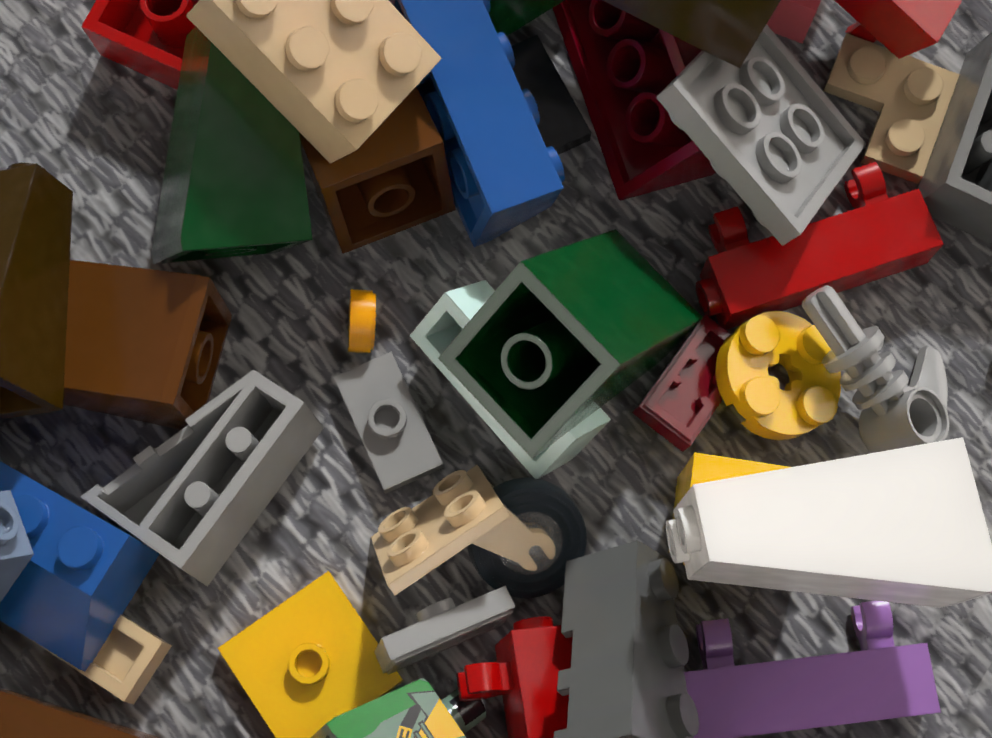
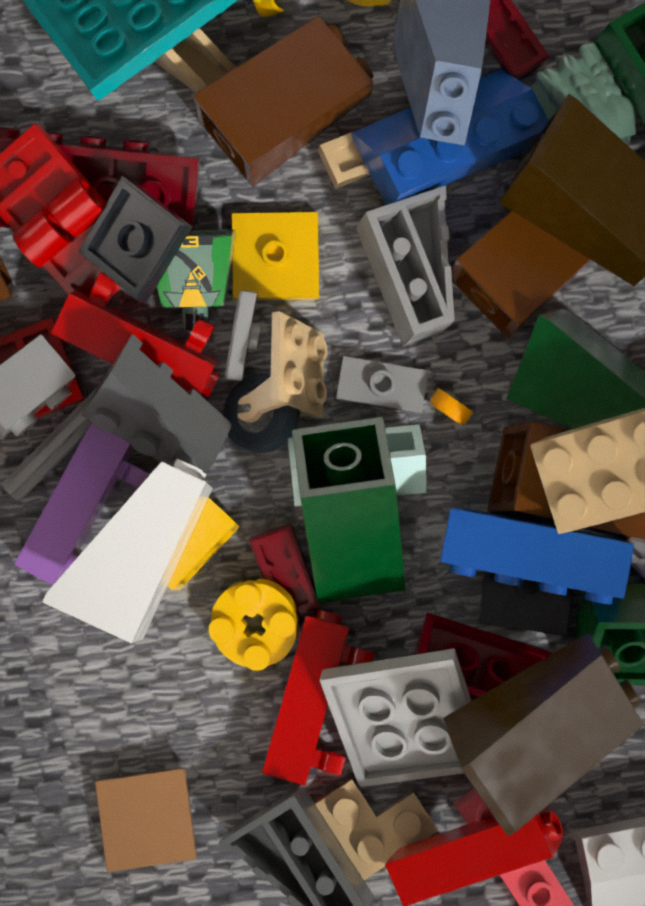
camera: 120 degrees right, 10 degrees up
(892, 411) = (205, 670): light grey piece -> none

